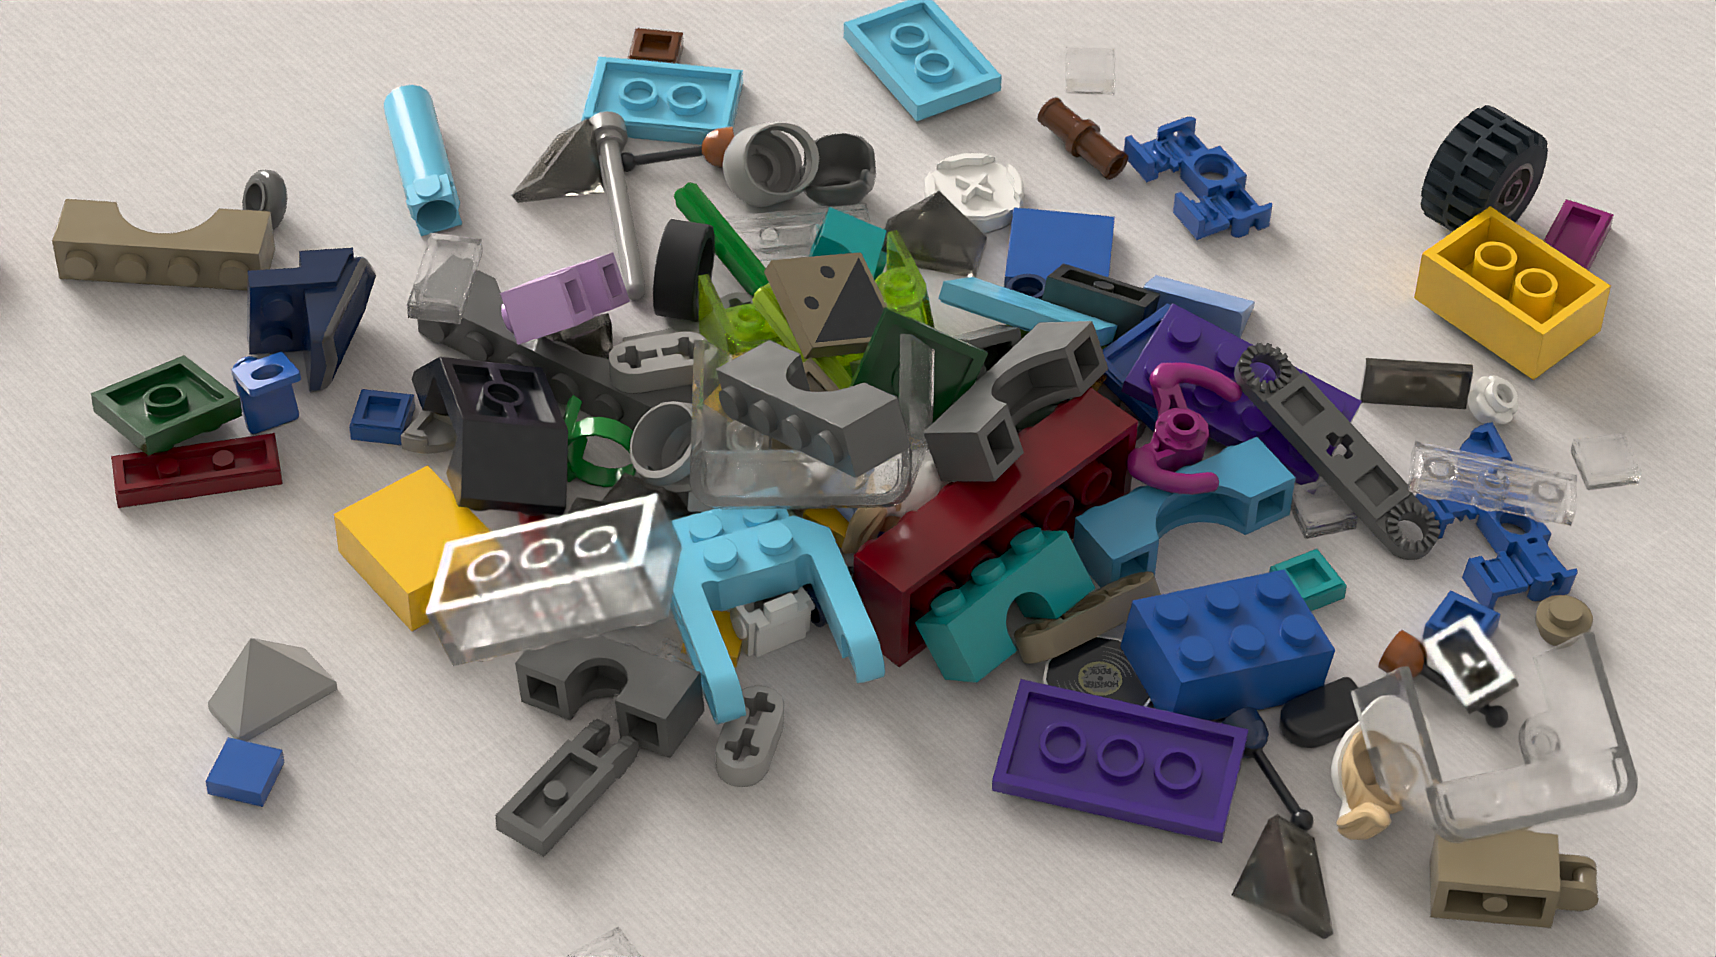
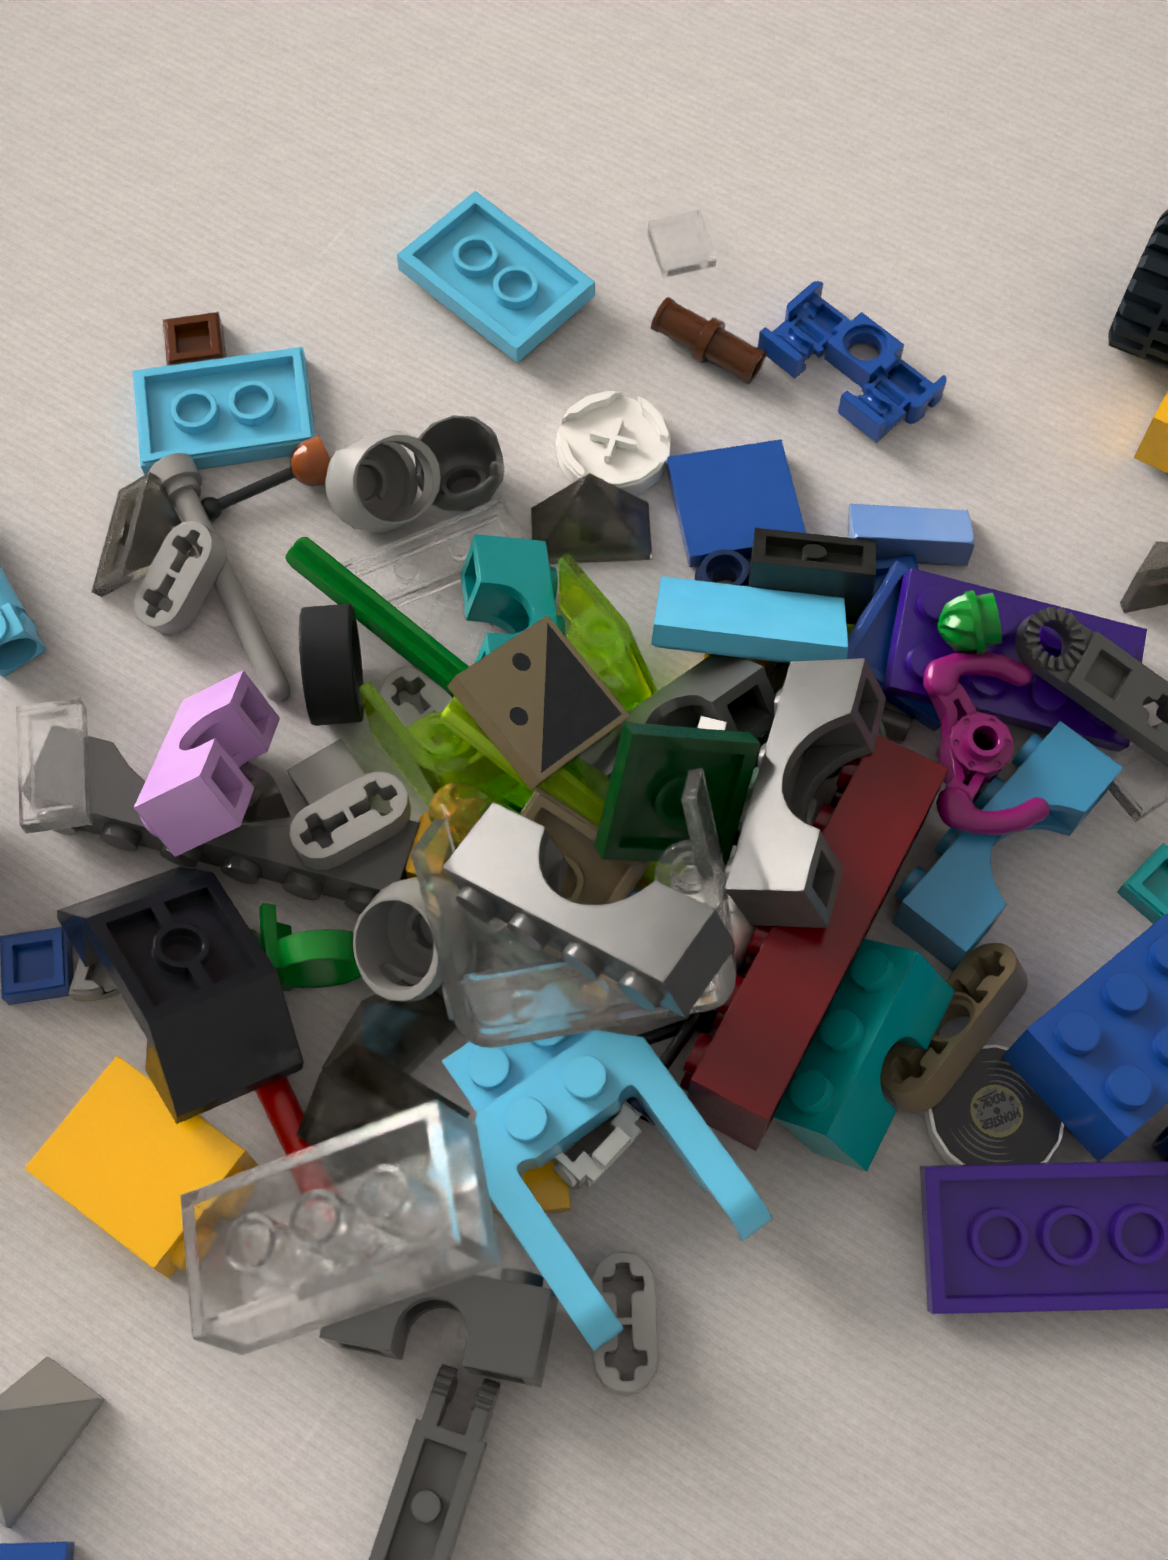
camera: 15 degrees left, 20 degrees up
(585, 195) = (180, 578): none -> light grey beam
(1201, 341) = (970, 622): none -> green plate

